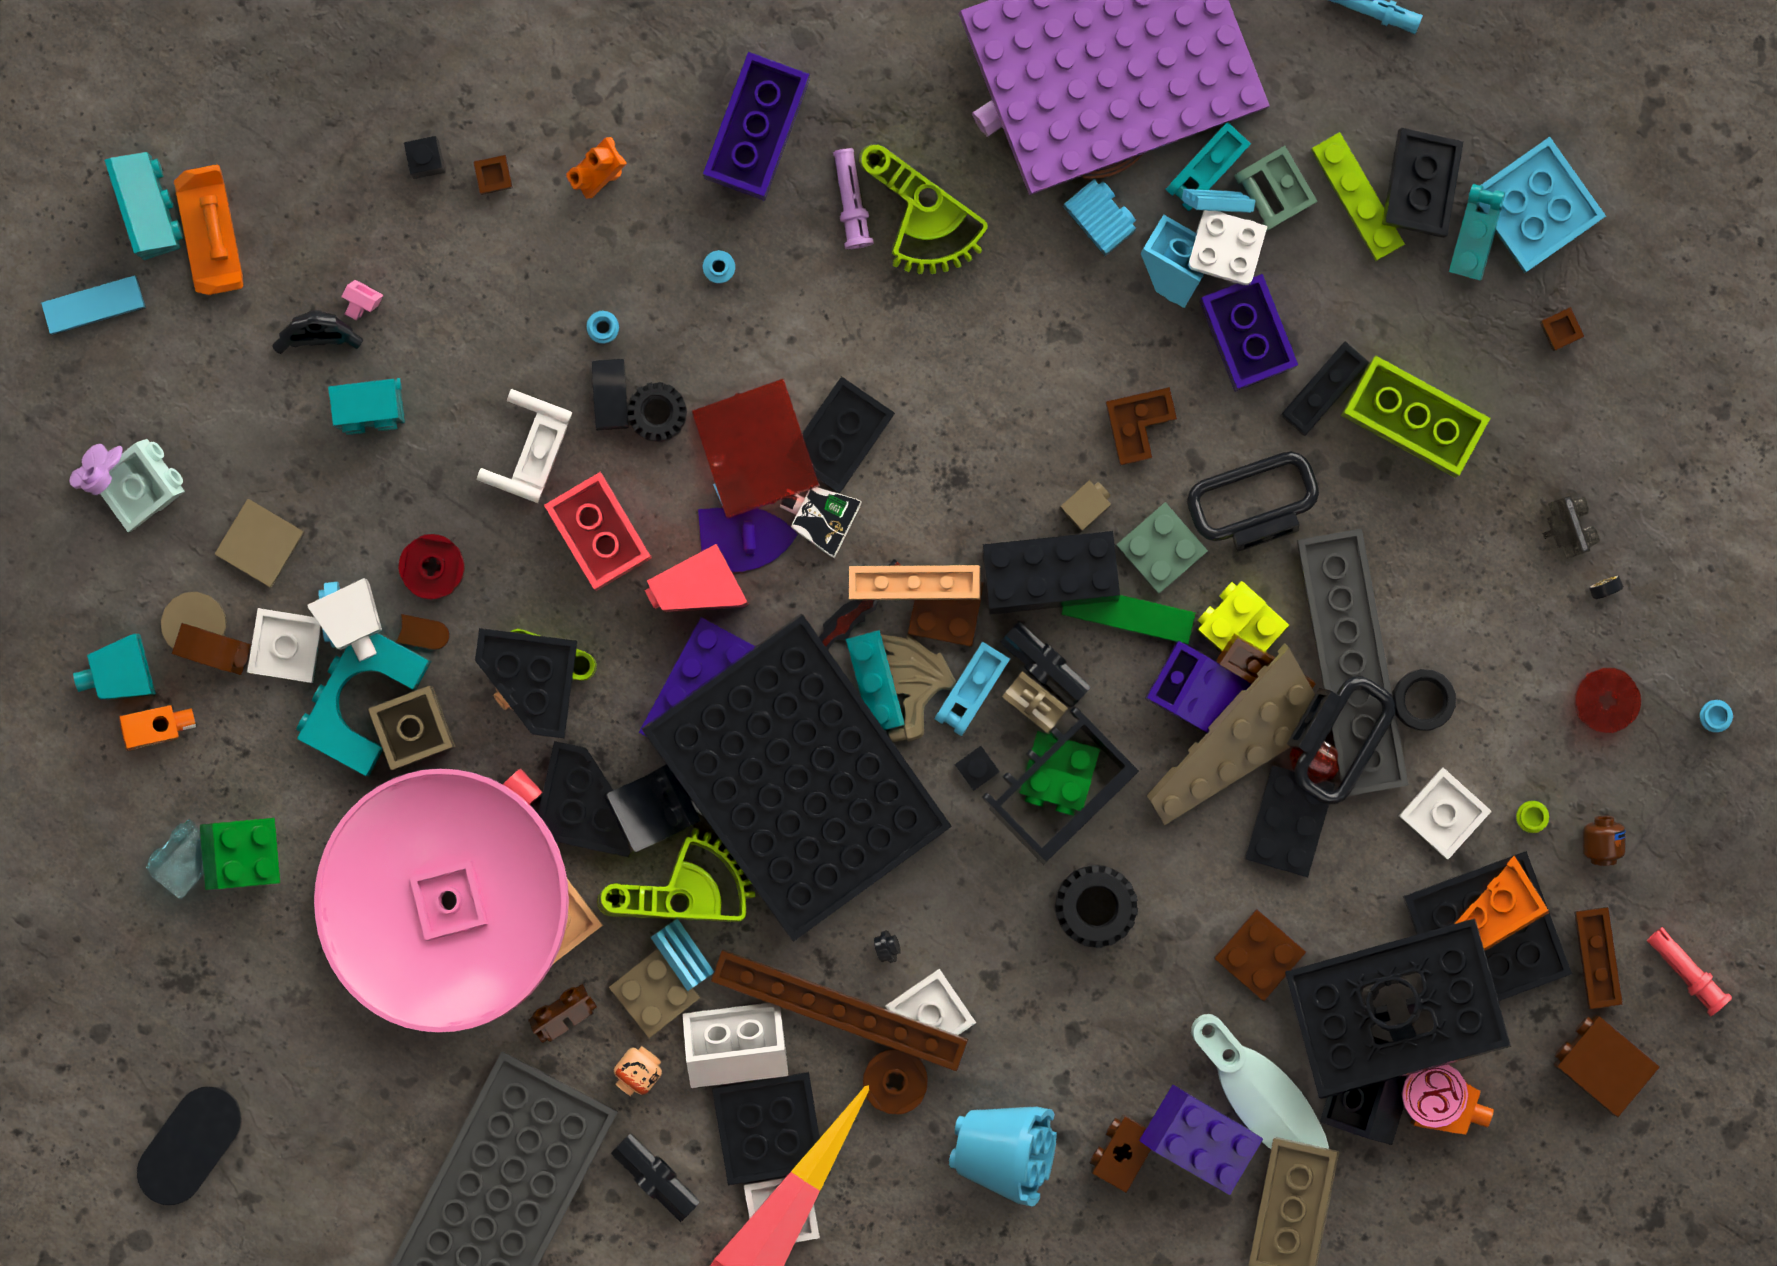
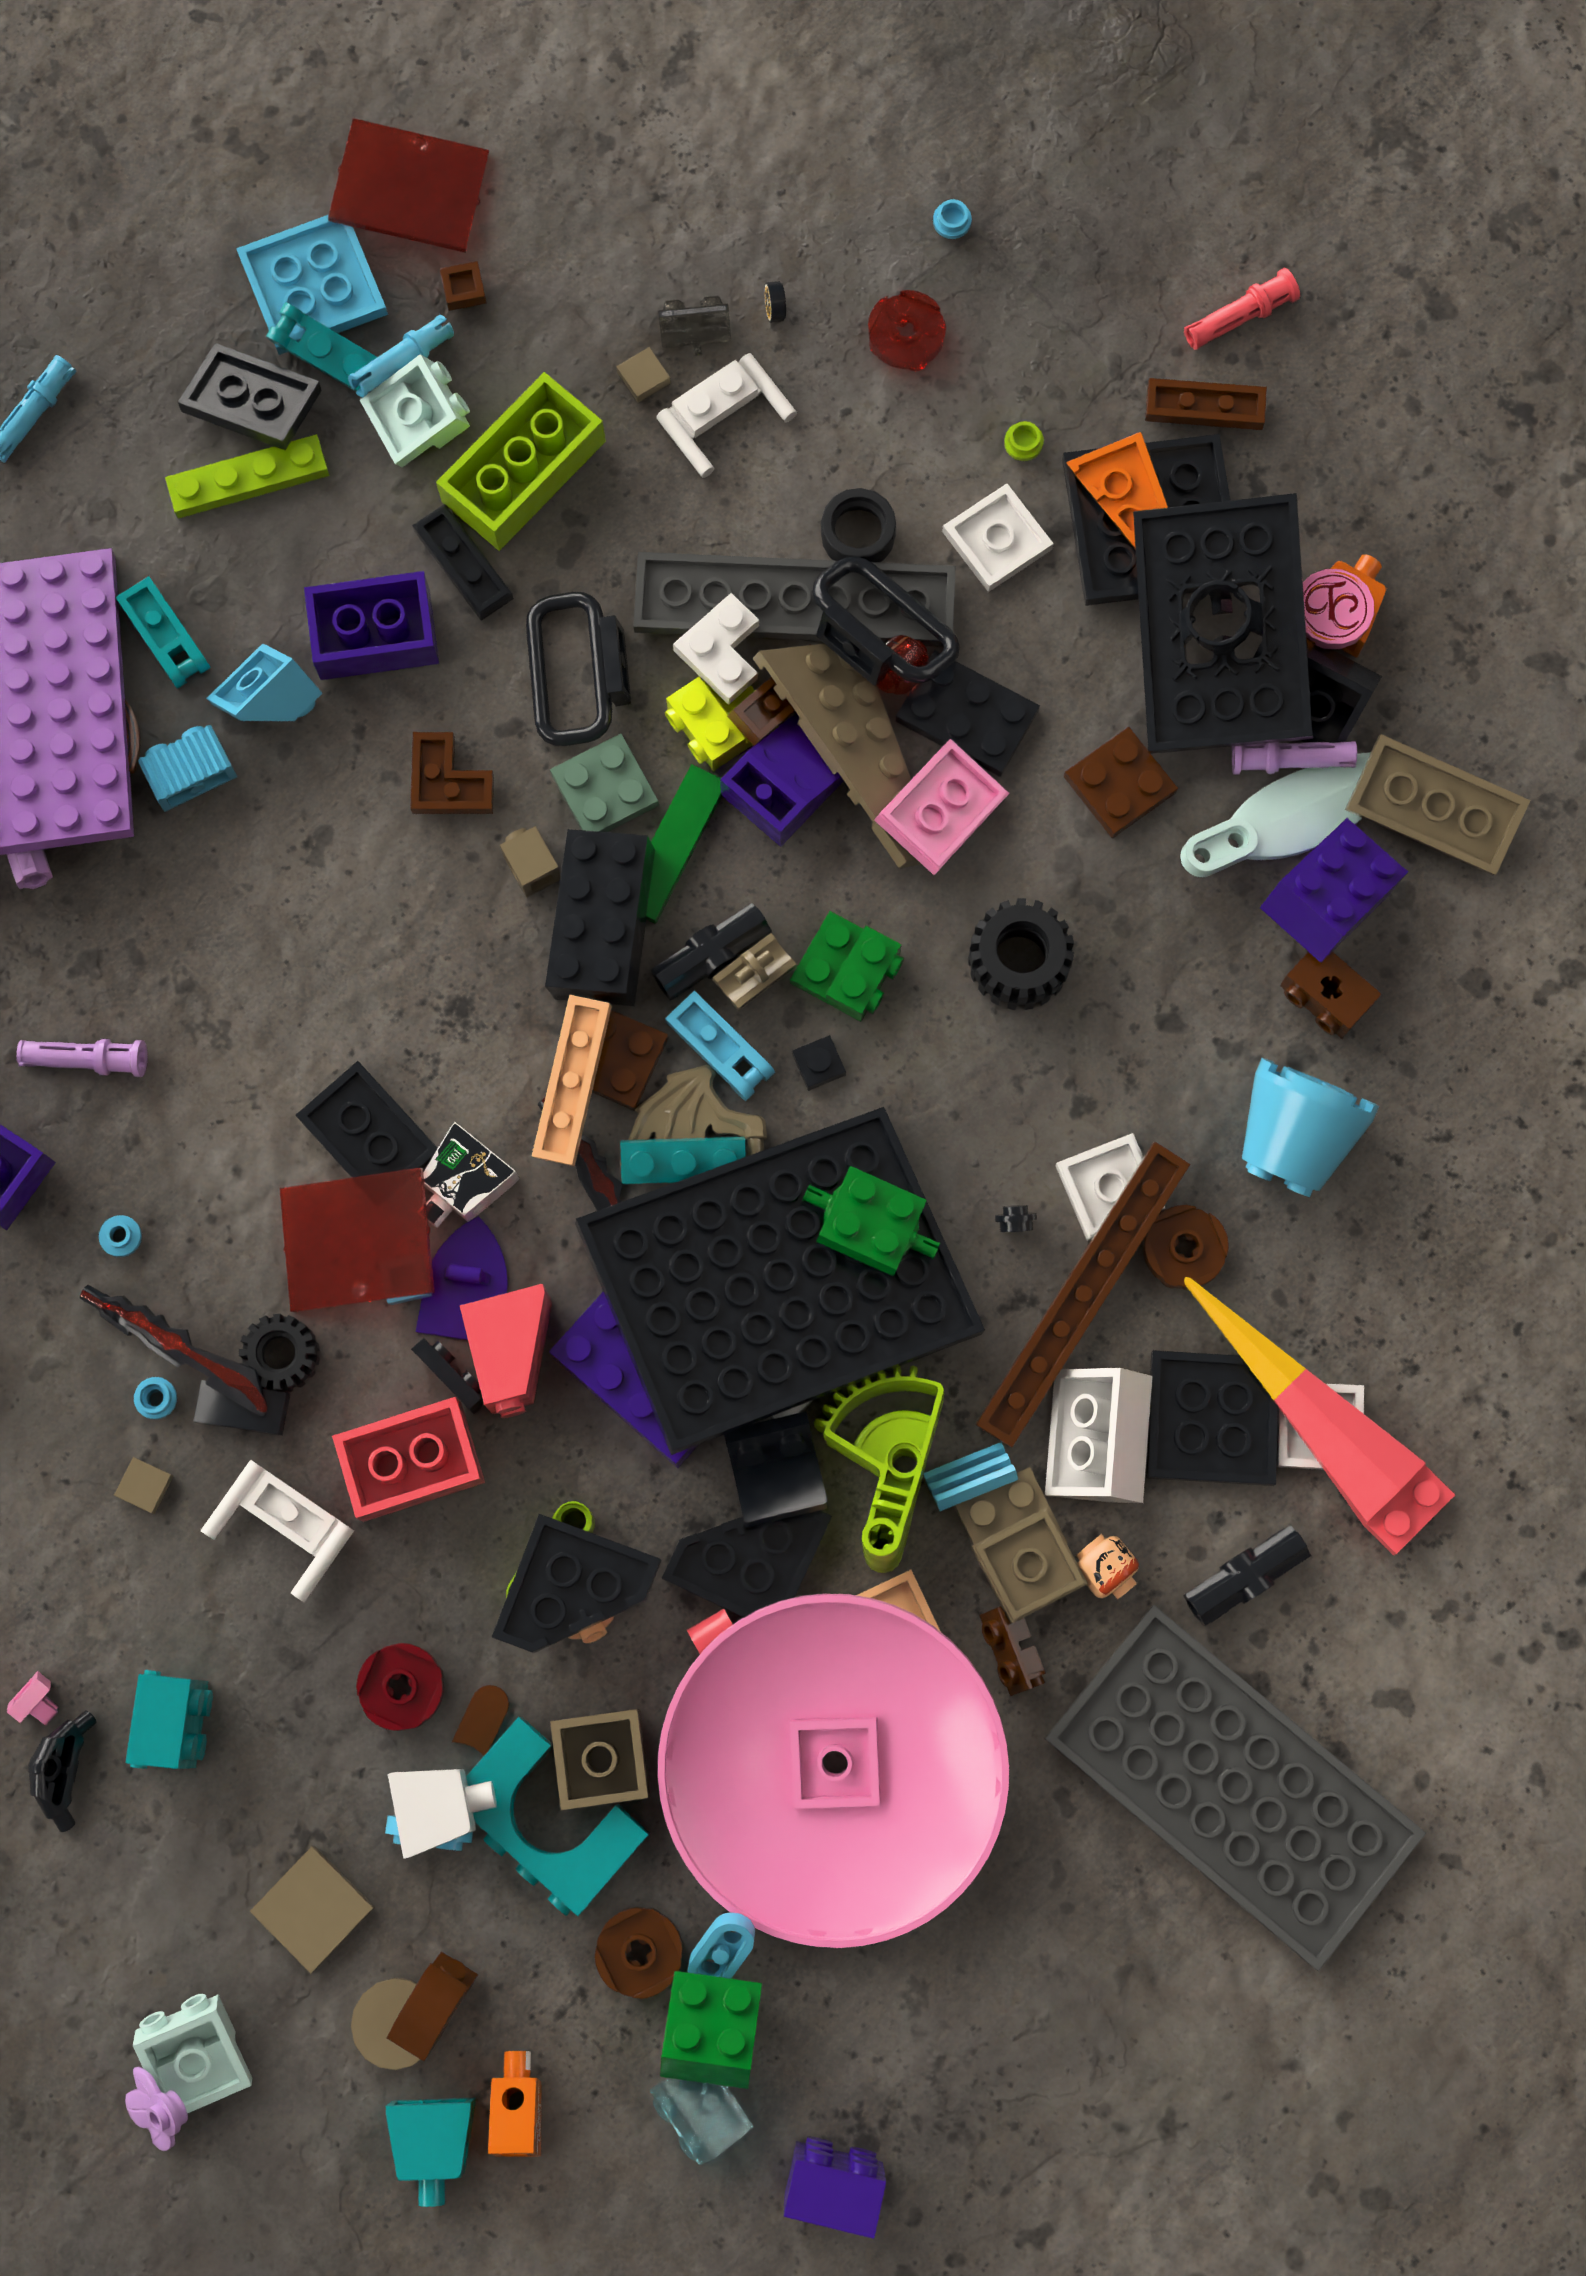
camera: 75 degrees left, 10 degrees down
(152, 967) = (835, 2187): none -> dark purple brick
(189, 1145) = (1082, 2192): black tile -> none
(285, 645) = (454, 1906): white tile -> none
(301, 790) = (614, 1944): none -> reddish brown plate
(302, 851) = (723, 1947): none -> medium azure plate
(536, 336) = (143, 1485): none -> dark tan tile
(624, 1012) = (1029, 1565): none -> dark tan tile
(644, 332) = (174, 1344): none -> black sword
(678, 533) = (438, 1360): none -> black plate
(855, 837) = (871, 1221): none -> green plate
(920, 221) = (75, 981): lime arm -> none
(1085, 814) = (866, 883): black hinge -> none
(1202, 818) = (941, 806): none -> bright pink tile
(1218, 200) = (204, 624): medium azure tile -> none
(1227, 247) = (259, 623): white bracket -> none
(1285, 182) = (209, 550): sand green plate -> none
(1292, 605) = (711, 645): none -> white plate
(1314, 1105) = (1293, 755): none -> lavender pin
(1442, 319) = (416, 410): none -> light aqua plate
(1485, 295) = (397, 357): none -> medium azure pin
(1510, 559) = (716, 400): none -> white plate
(1519, 494) = (643, 374): none -> dark tan tile
(1604, 841) = (1070, 366): reddish brown head -> none
(1605, 1064) = (1334, 421): reddish brown brick -> none
(1640, 262) = (408, 185): none -> clear red piece

